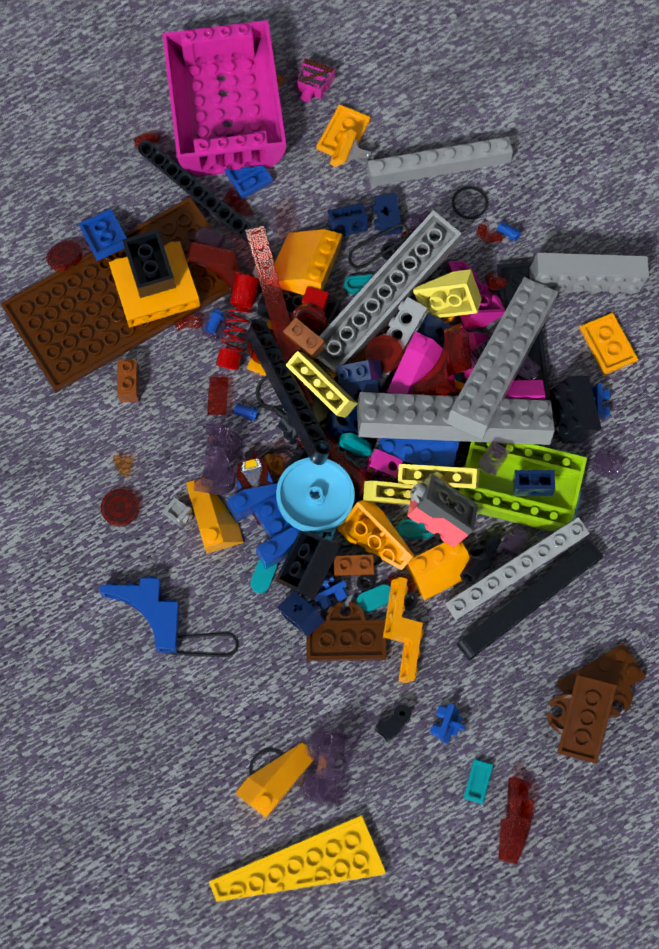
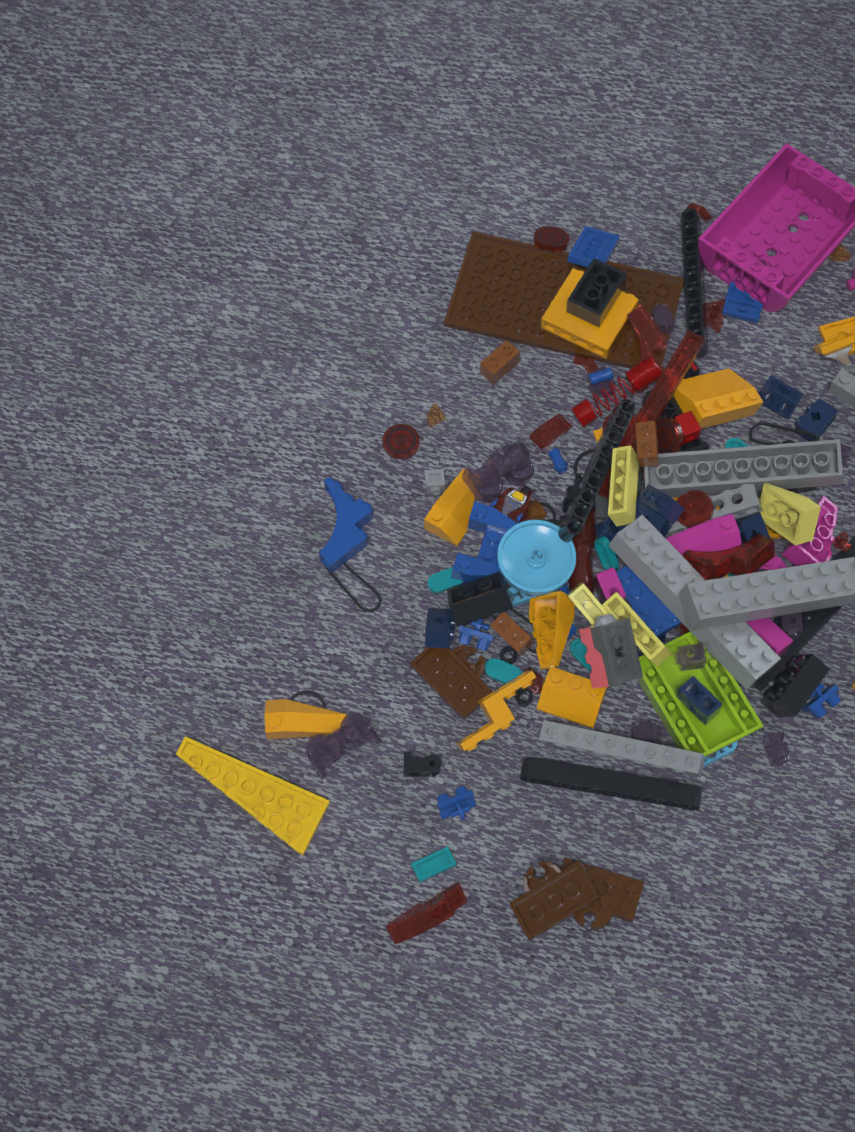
camera: 50 degrees right, 5 degrees down
(480, 558) = (606, 717): black piece -> none

